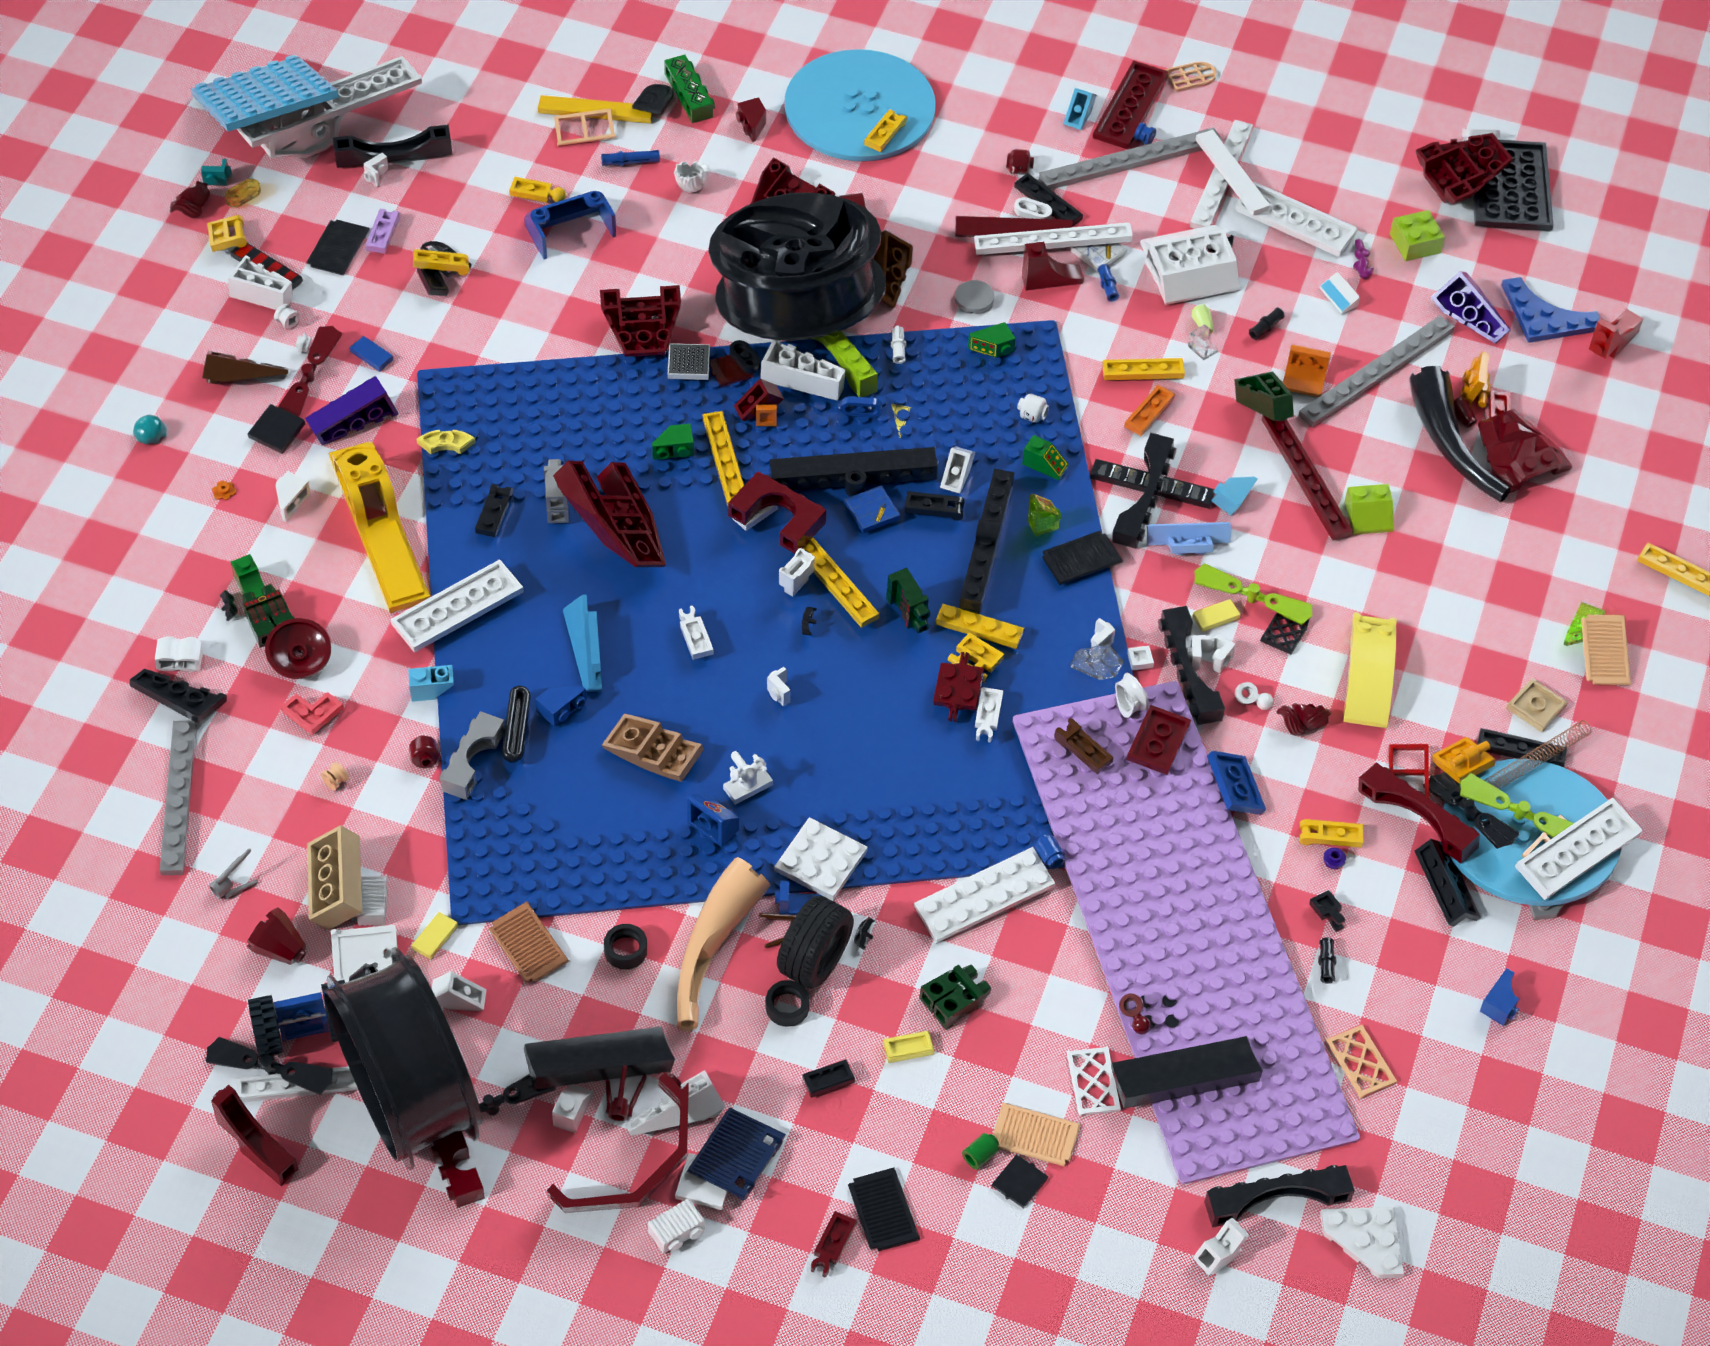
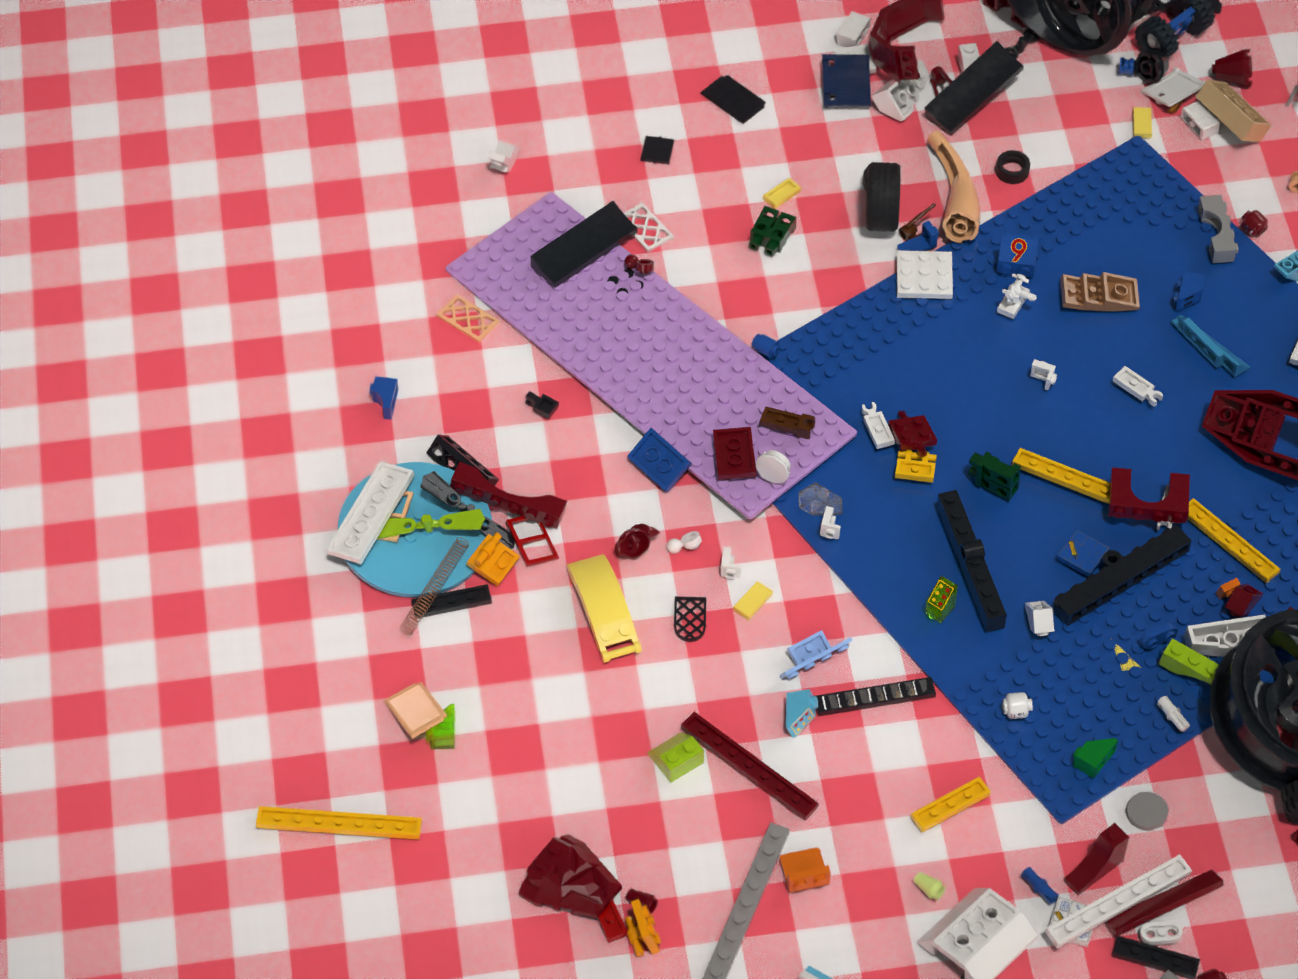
camera: 155 degrees right, 0 degrees up
(458, 993) = (1095, 91): white slope -> none
(516, 724) = (1207, 263): black piece -> none
(527, 943) = (1078, 142): nougat window -> none
(674, 442) = (1279, 530): green slope -> none
(796, 572) = (1096, 454): white piece -> none
(807, 618) = (1062, 433): black piece -> none
(828, 1078) = (820, 149): black plate -> none
(833, 1241) = (751, 64): dark red plate -> none
(860, 937) = (863, 249): black piece -> none
(894, 258) = (1245, 802): reddish brown wedge -> none
(935, 505) = (1036, 577): black plate -> none
(979, 626) = (927, 495): yellow plate -> none
(981, 1150) = (692, 148): green brick -> none
(984, 895) = (795, 303): white plate -> none
(1035, 1134) = (664, 180): light nougat window -> none
(1044, 458) = (975, 660): green slope -> none
(1081, 557) = (890, 594): black window -> none
(1131, 523) = (882, 703): black arch -> none
(1140, 658) = (791, 532): white plate -> none
(1149, 410) = (919, 764): orange plate -> none
(1198, 645) = (751, 558): white bracket -> none
(1200, 344) = (914, 857): clear panel -> none
(1203, 701) = (719, 516): black arch -> none
(1265, 395) = (822, 810): dark green wedge -> none
(1266, 323) = (870, 911): black pin -> none
(1288, 607) = (697, 630): lime piece -> none
(1326, 1186) = (455, 223): black arch -> none
(1327, 960) = (525, 369): black pin -> none
(1331, 833) = (567, 461): yellow plate -> none
(1334, 863) = (556, 450): dark purple plate -> none
(1367, 1237) = (412, 211): white plate -> none
(1436, 408) = (667, 881): black brick -> none
(1536, 705) = (454, 644): tan tile -> none

